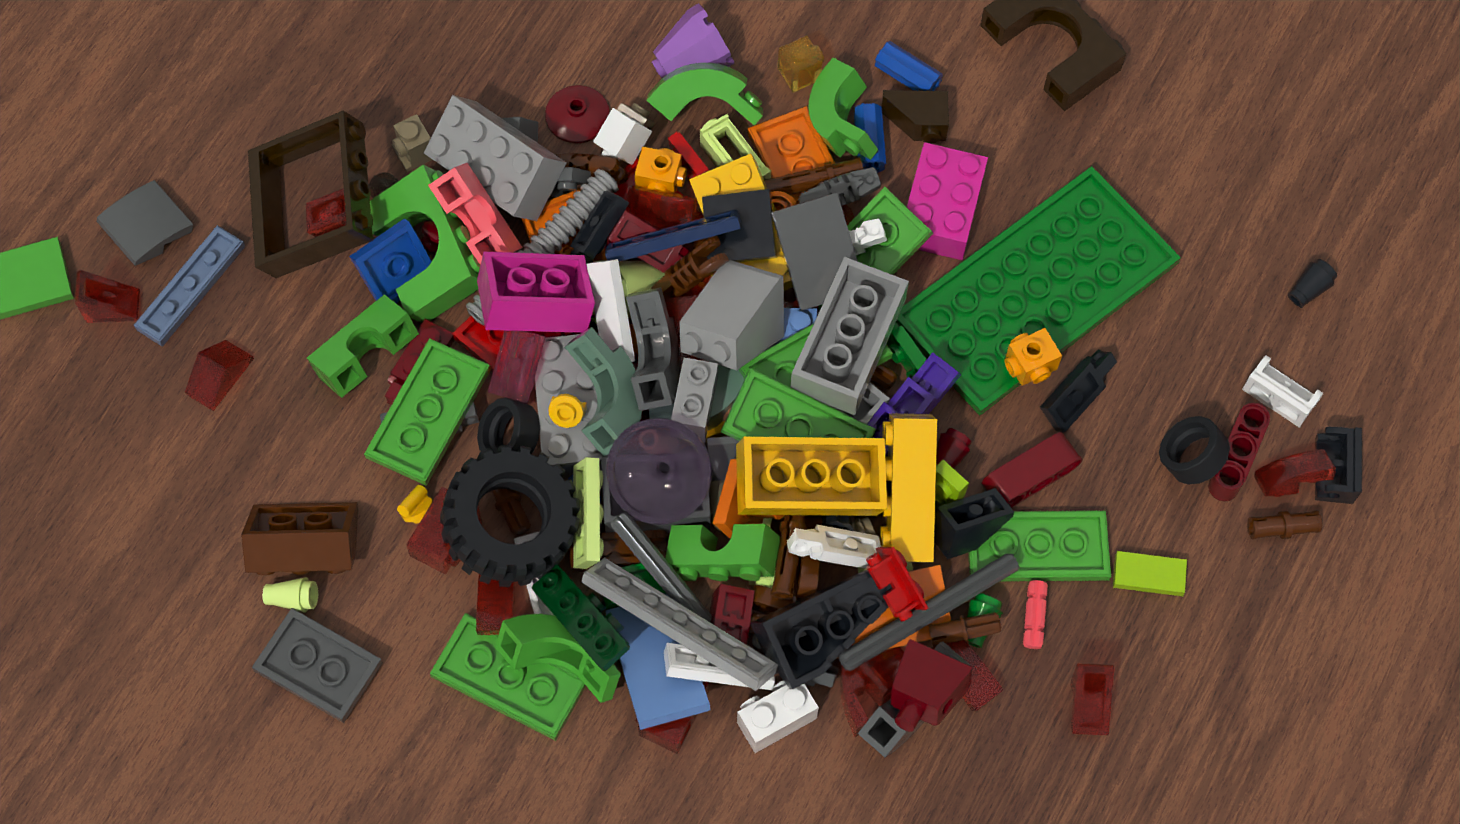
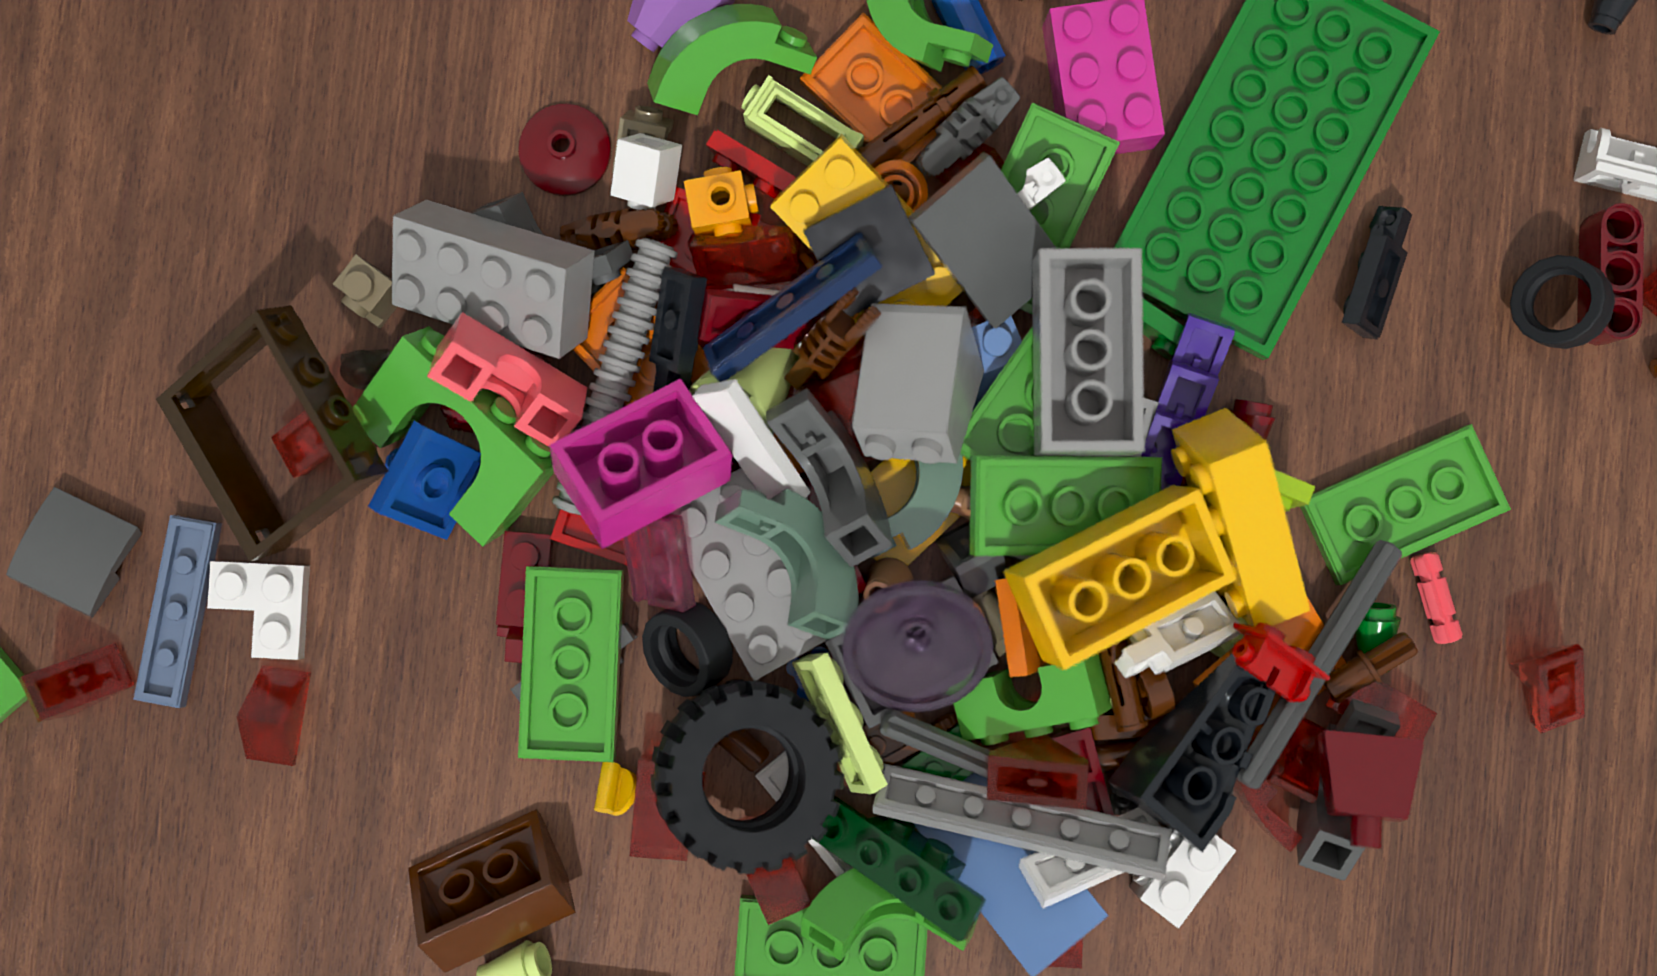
camera: 20 degrees left, 20 degrees up
(255, 301) = (275, 594): none -> white plate
(379, 326) = (422, 638): bright green arch -> none
(566, 410) = (754, 602): yellow plate -> none
(695, 395) = (916, 522): light grey brick -> none
(701, 592) = (1038, 774): none -> clear red slope
(969, 522) = (1326, 519): black slope -> none
(1032, 357) = (1316, 264): light orange brick -> none
(1034, 469) = (1362, 412): dark red beam -> none
(1149, 573) = (1554, 483): lime tile -> none

